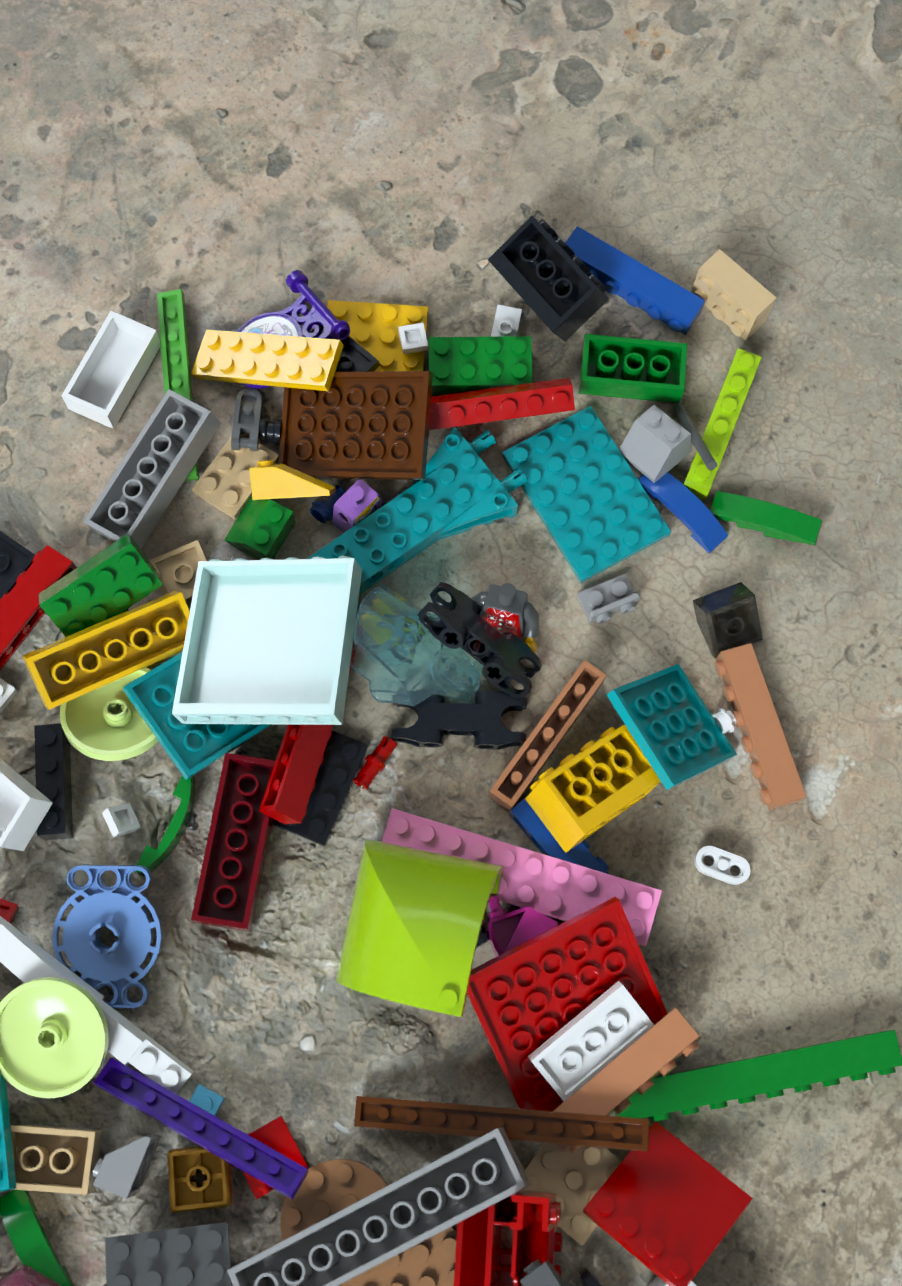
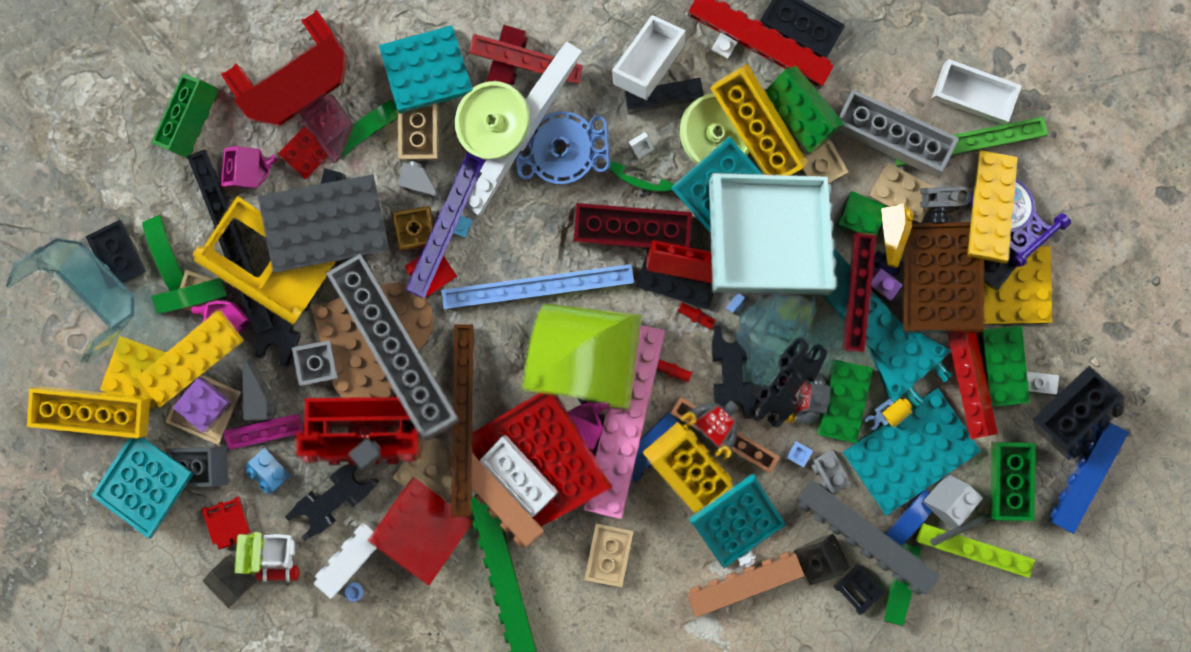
camera: 90 degrees right, 15 degrees up
(310, 995) = (537, 286): none -> light blue plate
(363, 532) = (858, 292): none -> dark red brick
(363, 705) = (736, 304): none -> light blue plate
(413, 338) = (1021, 314): white plate -> none
(451, 800) = (674, 371): none -> red pin
(499, 561) = (847, 401): none -> green brick
(532, 502) = (897, 412): none -> yellow brick
(532, 522) = (878, 417): none -> light blue plate
(533, 741) = (716, 424): none -> torso
(580, 637) = (799, 454): none -> light blue plate
(701, 553) = (867, 537): none -> dark grey brick
(712, 917) = (608, 555): none -> tan plate
(721, 865) = (645, 560): white plate -> none
(733, 295) = (1080, 554): tan brick -> none
(764, 568) = (863, 584): none -> black plate

